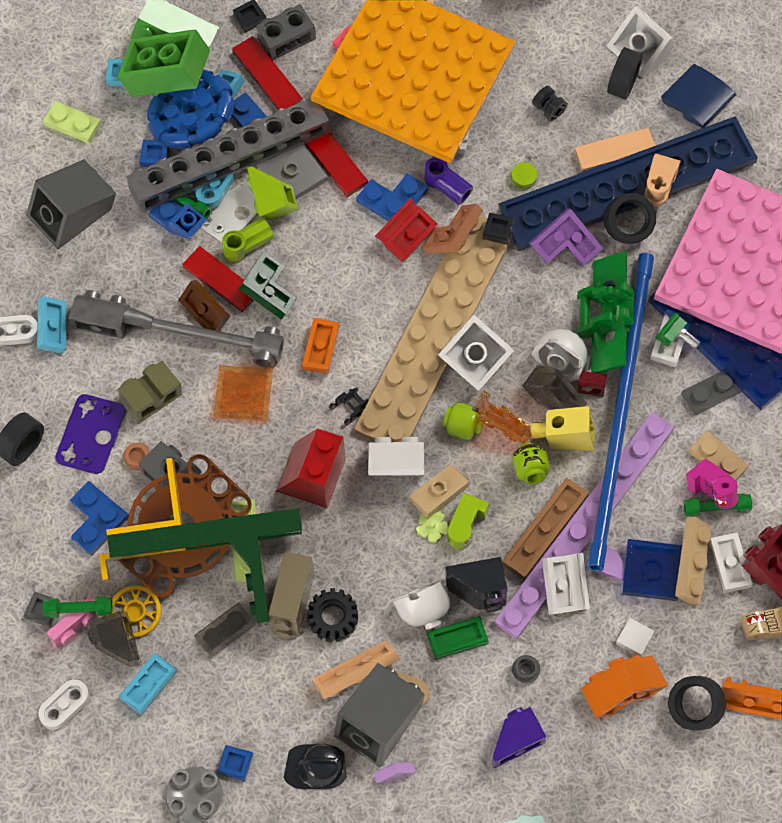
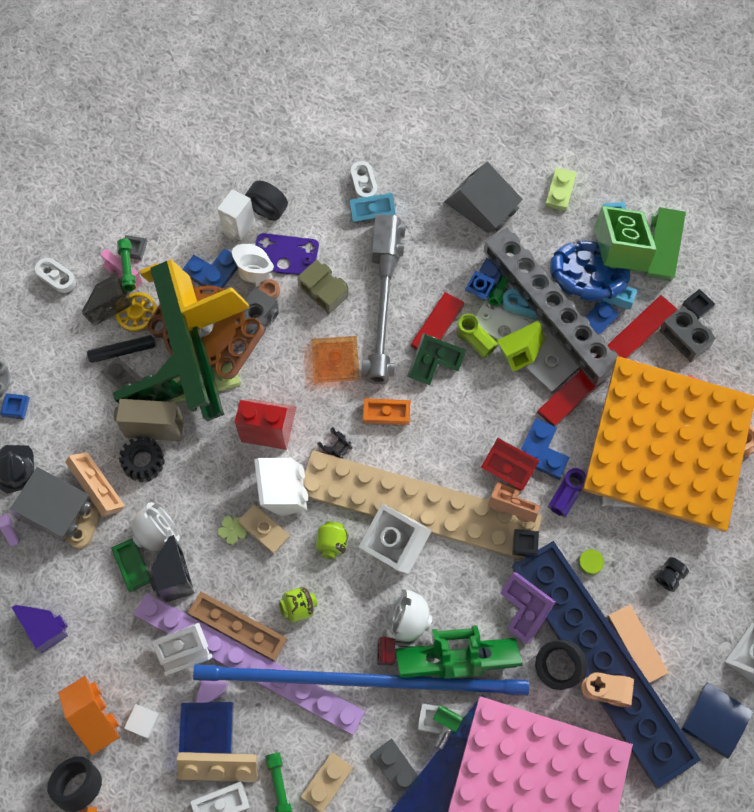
camera: 80 degrees right, 0 degrees up
(34, 474) = (236, 215): none -> white brick
(104, 464) = (252, 263): none -> white piece
(148, 684) = (75, 331): medium azure plate -> none
(152, 152) = (543, 252): blue plate -> none
(182, 632) = (120, 349): none -> black axle
(203, 306) = (406, 314): reddish brown plate -> none
(464, 519) = (236, 553): lime leg -> none
(503, 419) = (336, 572): clear orange wing -> none
(526, 660) = (100, 621): dark grey plate -> none
(552, 389) = (369, 617): clear smoke slope -> none
(567, 429) = (331, 632): light yellow torso -> none
(625, 73) = (719, 640): black tyre -> none
(714, 483) = (289, 785): dark pink leg -> none

